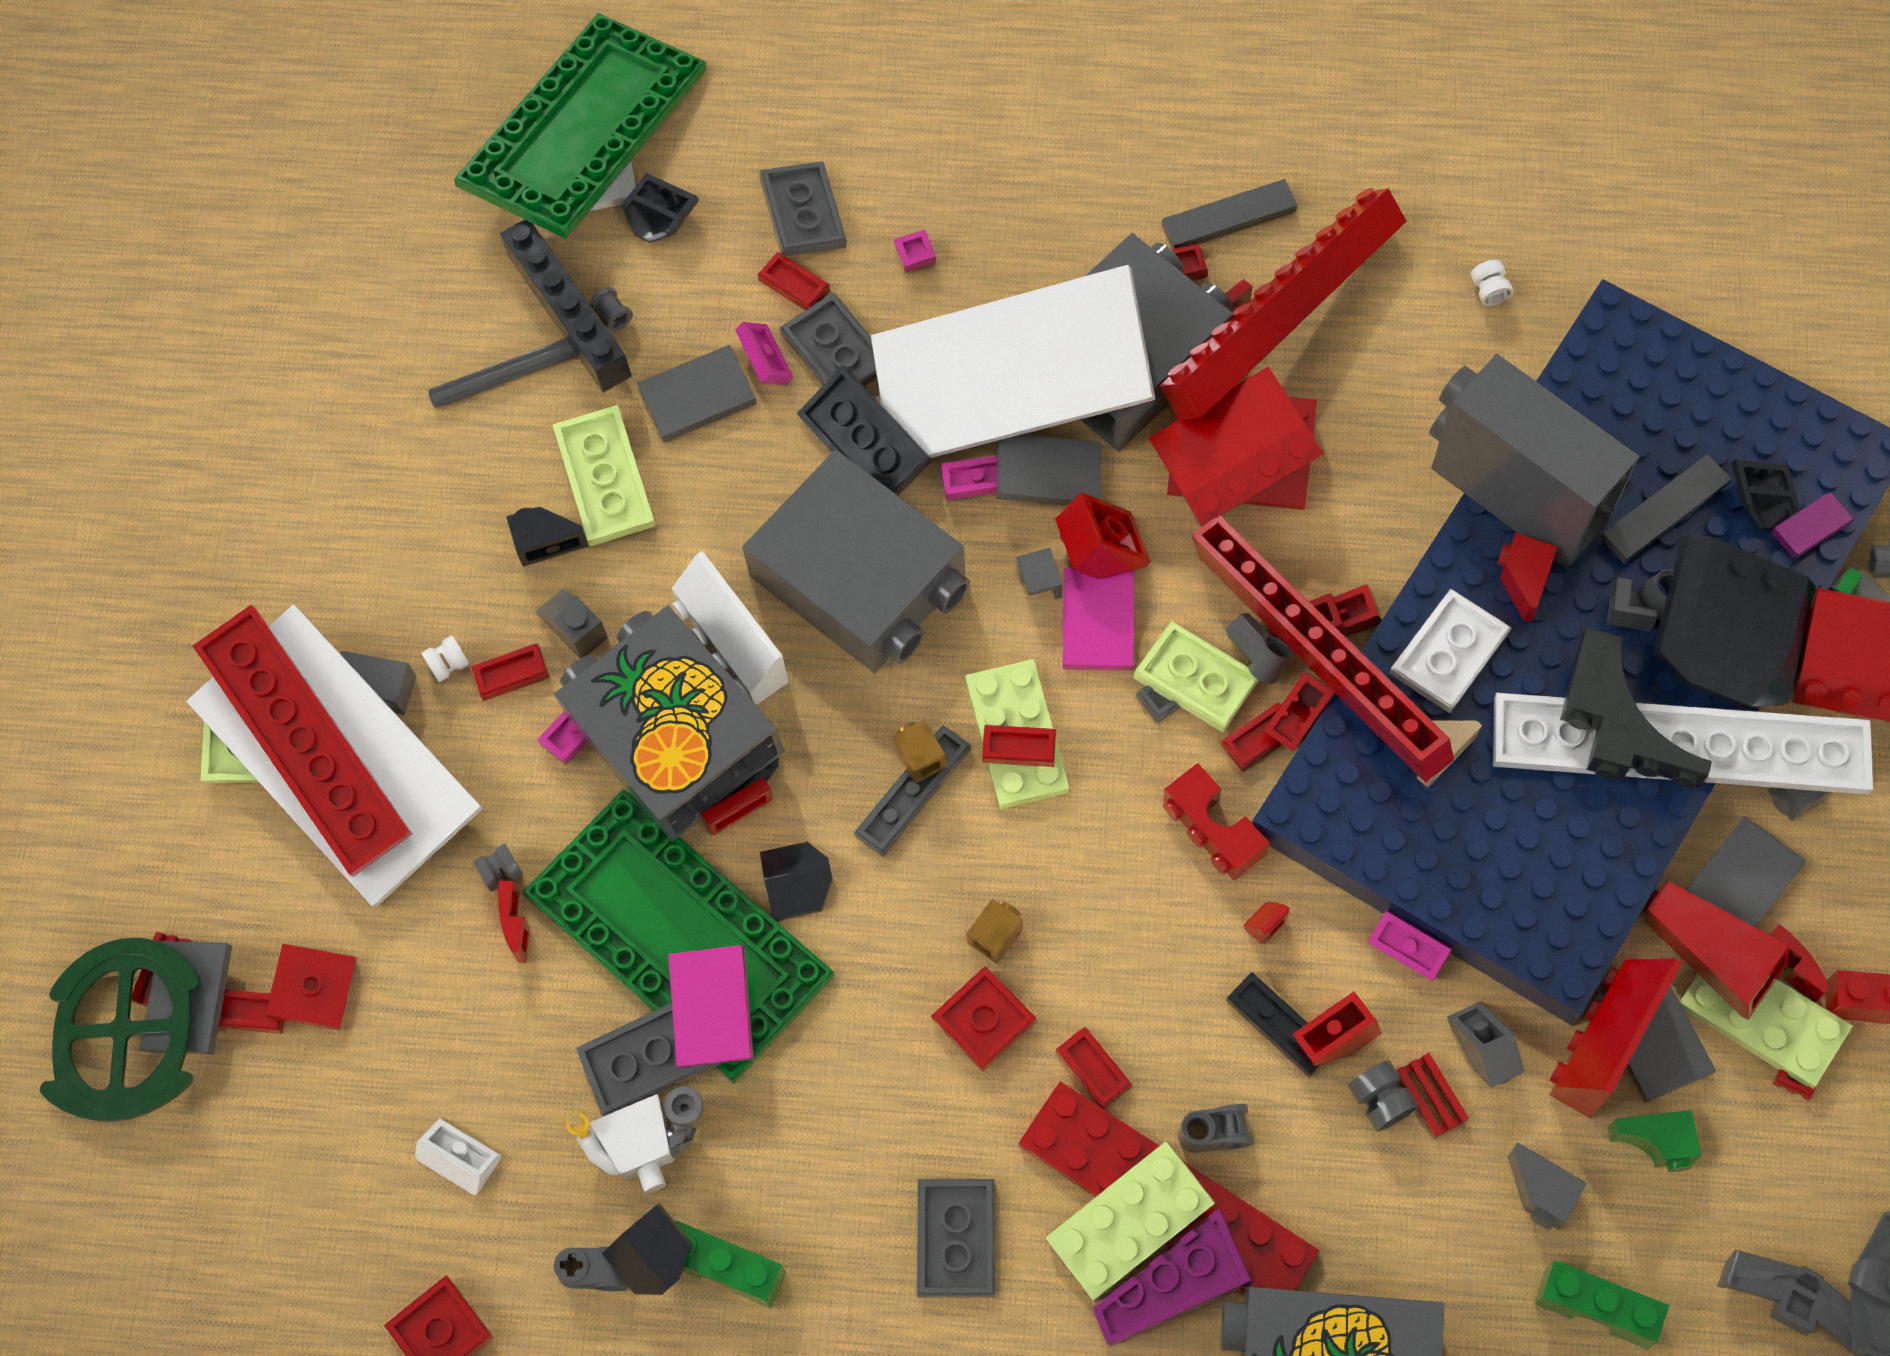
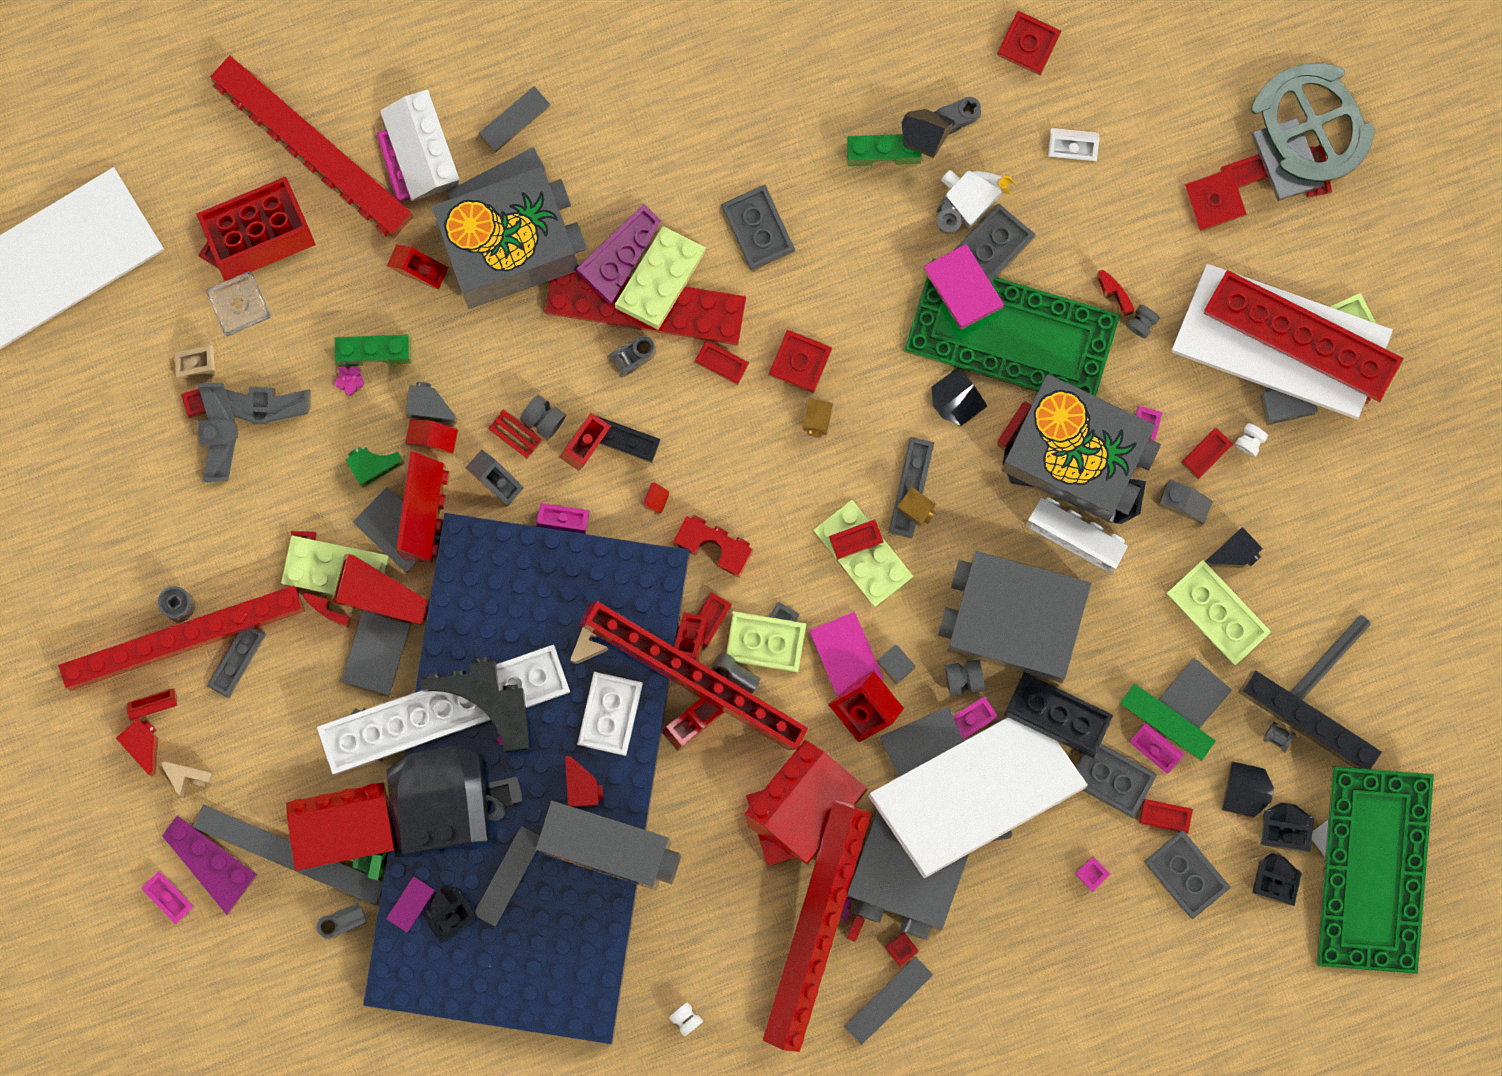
camera: 155 degrees right, 15 degrees up
(681, 272) = (1247, 790): none -> black slope
(700, 161) = (1277, 880): none -> black slope
(735, 374) = (1167, 722): none -> green tile
(963, 524) = (964, 677): none -> dark grey wheel
(1556, 1141) = (431, 435): none -> red slope
(1649, 1281) = (349, 379): none -> dark pink plant

